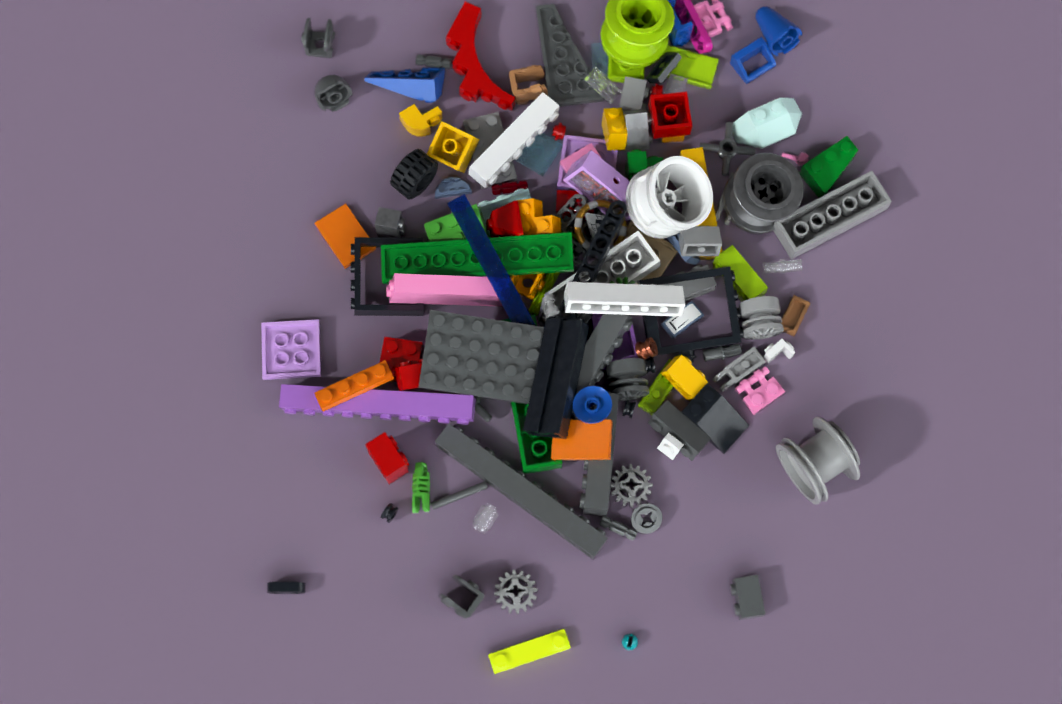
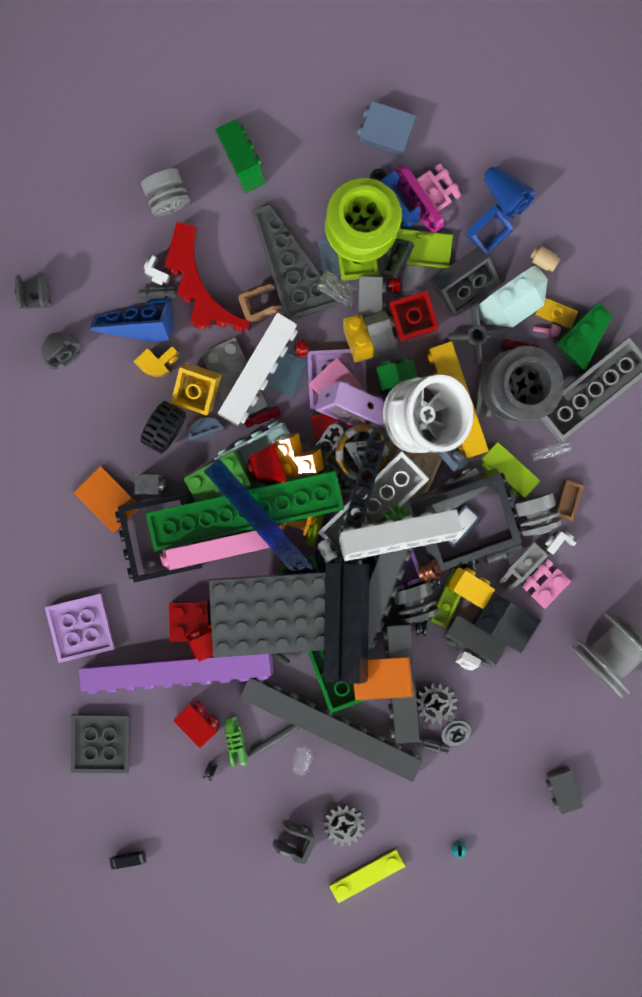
camera: 10 degrees left, 15 degrees up
(285, 465) = (100, 743): none -> dark grey plate
(354, 385) = (149, 661): orange plate -> none
(436, 45) = (157, 276): none -> white bracket
(592, 396) = (377, 648): blue dish -> none
(700, 241) = (469, 451): light grey brick -> none
(724, 100) = (466, 281): none -> dark grey slope
(801, 93) = (545, 258): none -> tan brick
(805, 143) = (557, 314): none -> yellow plate

